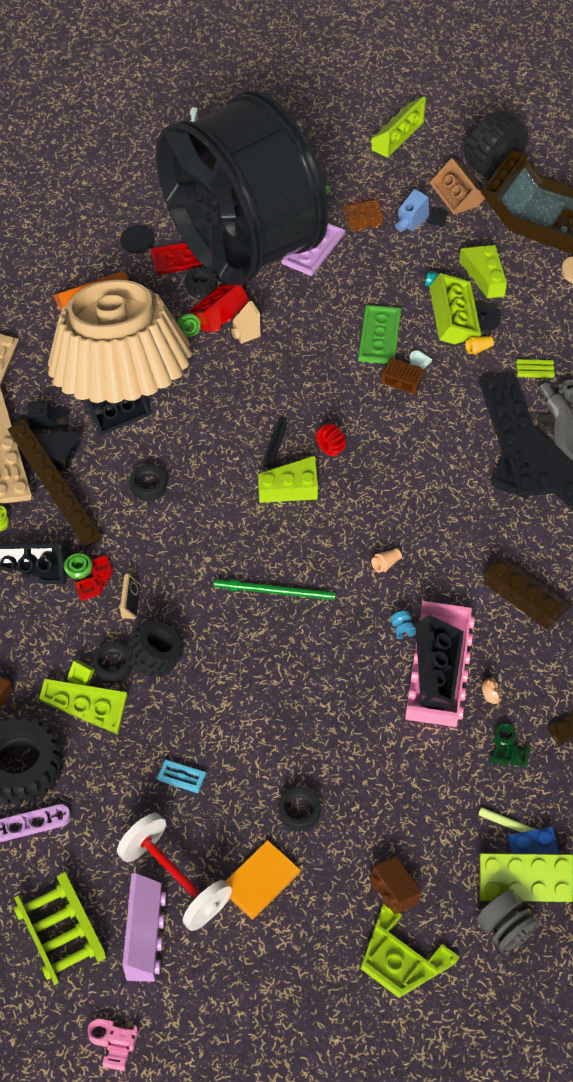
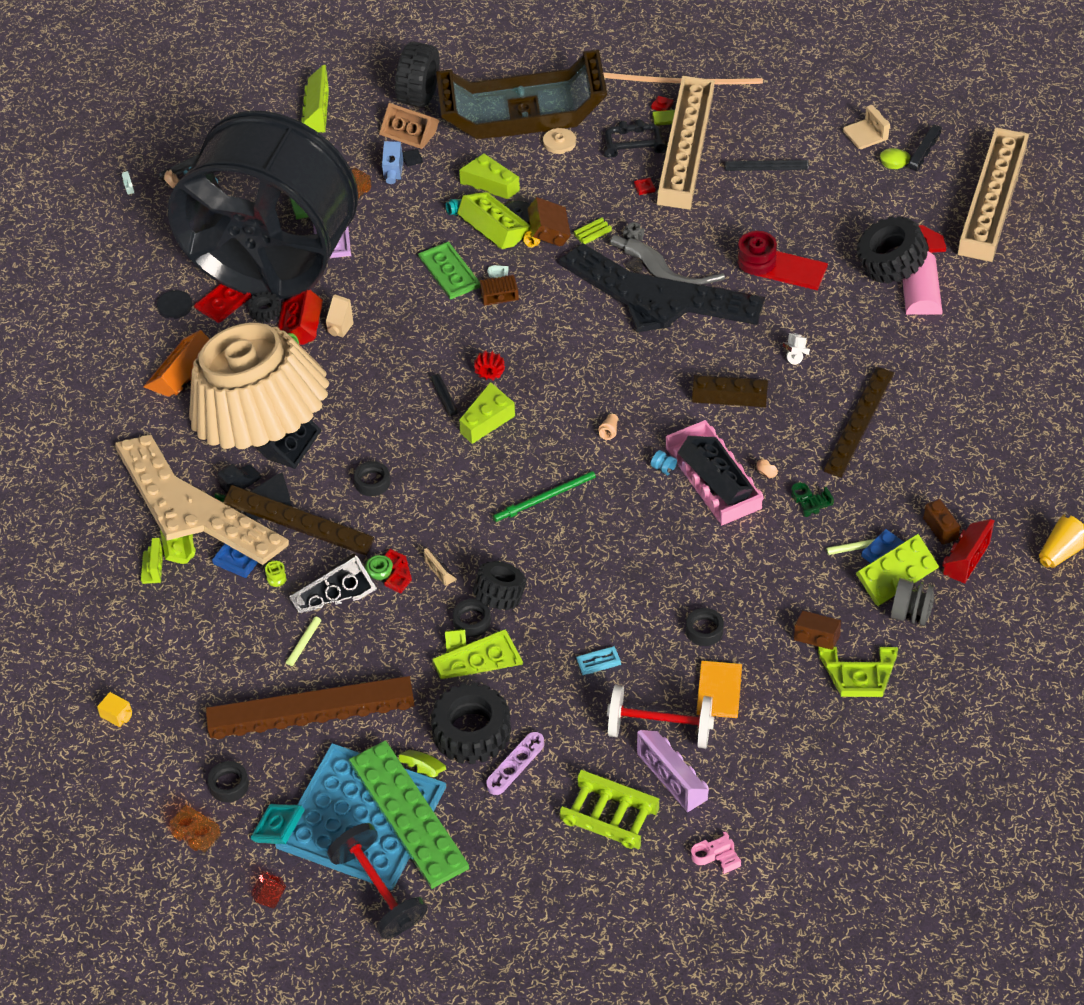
camera: 35 degrees left, 5 degrees down
(498, 338) = (549, 222): none -> reddish brown brick

